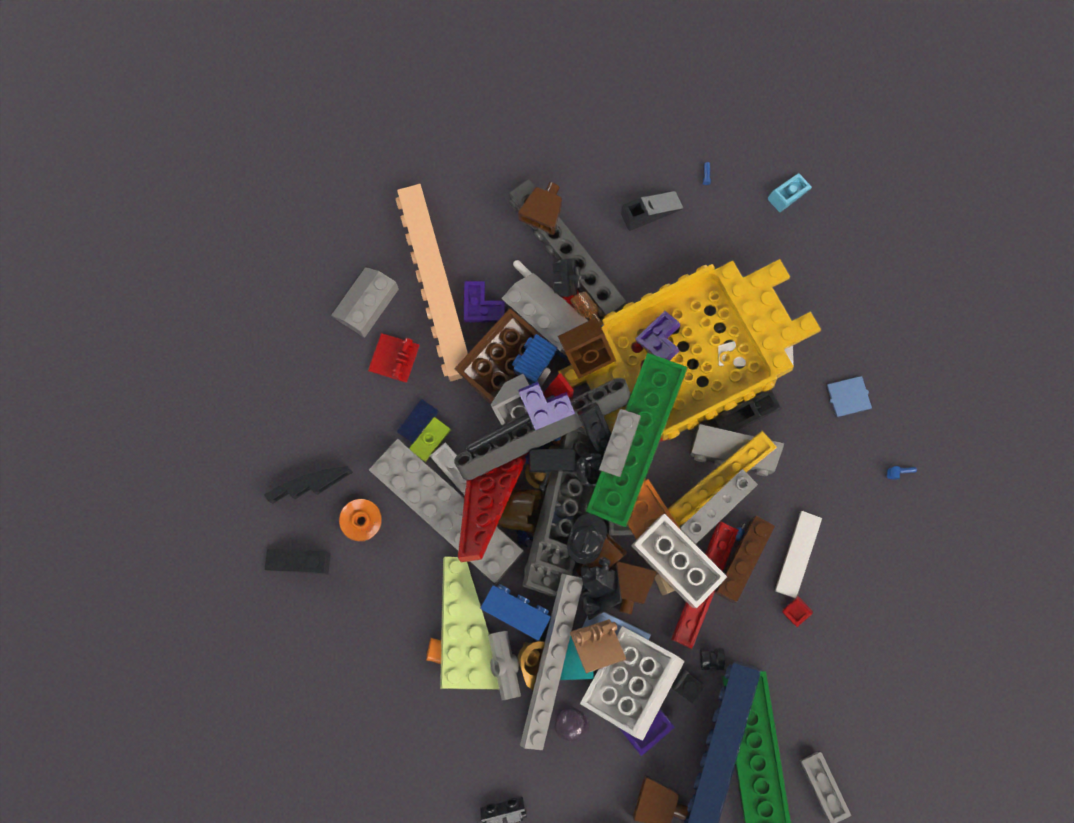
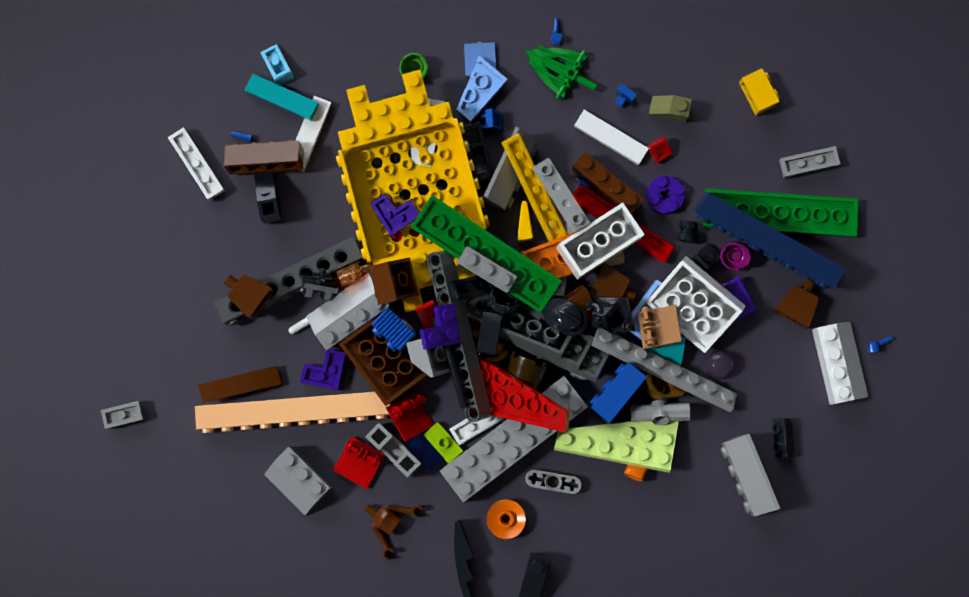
camera: 75 degrees left, 5 degrees up
(337, 398) = (387, 521): none -> reddish brown piece
(400, 120) = (122, 414): none -> light grey plate
(404, 579) = (566, 488): none -> light grey beam
(418, 380) = (393, 449): none -> light grey arch
(450, 398) = (410, 415): none -> red hinge
(451, 223) = (239, 384): none -> reddish brown slope
(453, 781) = (749, 475): none -> light grey slope
(667, 135) = (196, 164): none -> white plate
(678, 478) = (525, 230): none -> yellow slope
(689, 197) = (263, 157): none -> brick
(697, 719) = (735, 256): none -> magenta hair
(725, 238) = (311, 129): none -> white tile
(738, 634) = (670, 204): none -> dark purple plate
(756, 203) = (282, 97): none -> teal tile
(786, 422) = (493, 120): none -> blue tile
(817, 403) = (481, 88): none -> light blue wing
(828, 326) = (413, 62): none -> bright green hair
(848, 559) = (625, 95): none -> blue tile
(848, 614) = (670, 107): none -> olive slope
(866, 463) = (543, 58): none -> green bar
(892, 713) = (759, 91): none -> yellow brick

